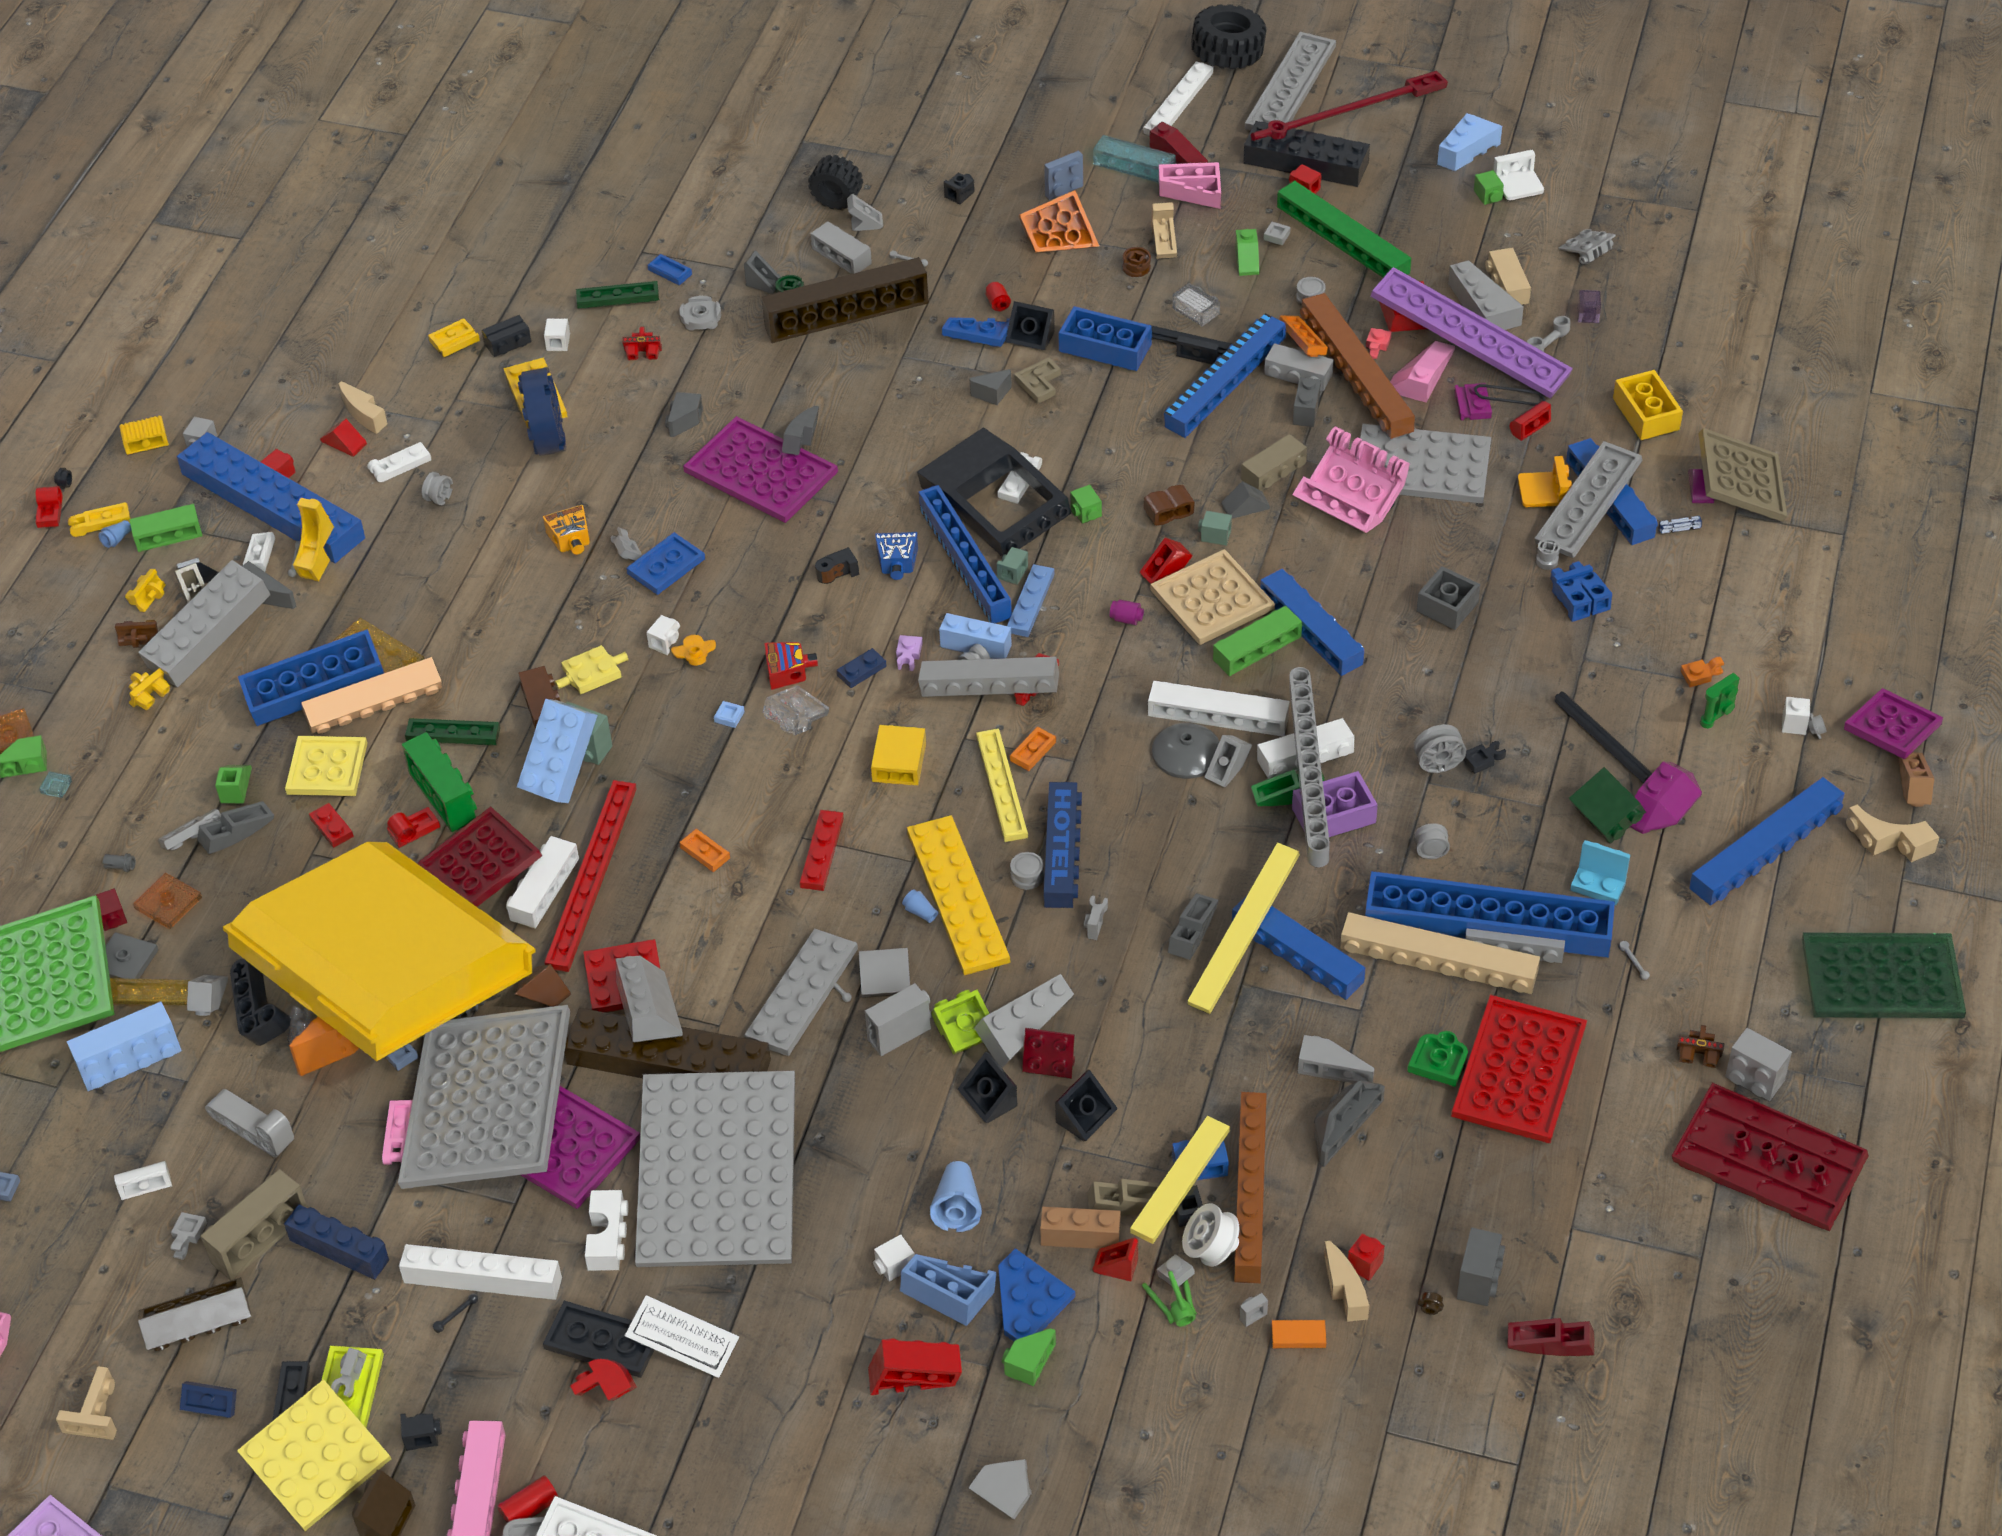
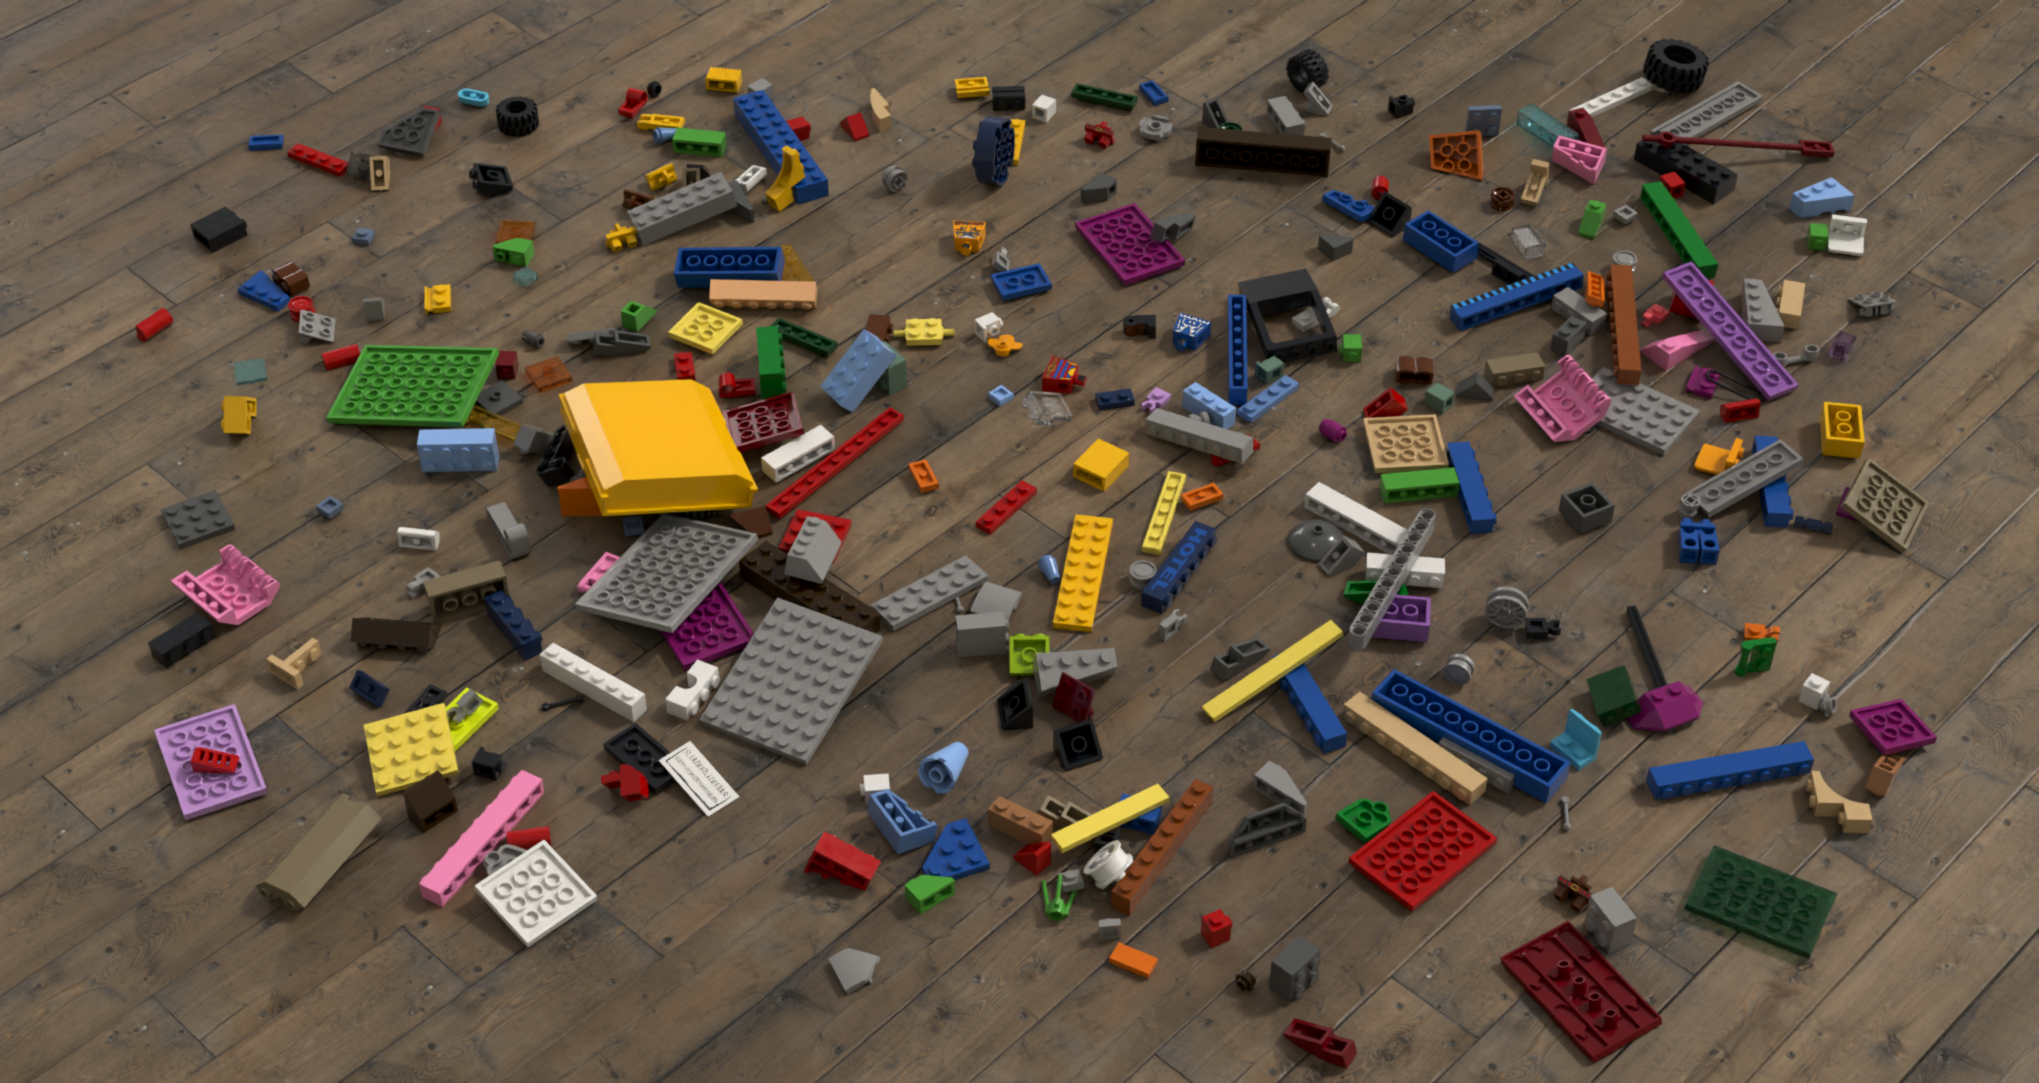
camera: 25 degrees right, 5 degrees down
(399, 462) = (882, 154): white plate -> none
(1036, 377) = (1371, 252): dark tan plate -> none
(1345, 1283) = (1188, 941): tan slope -> none

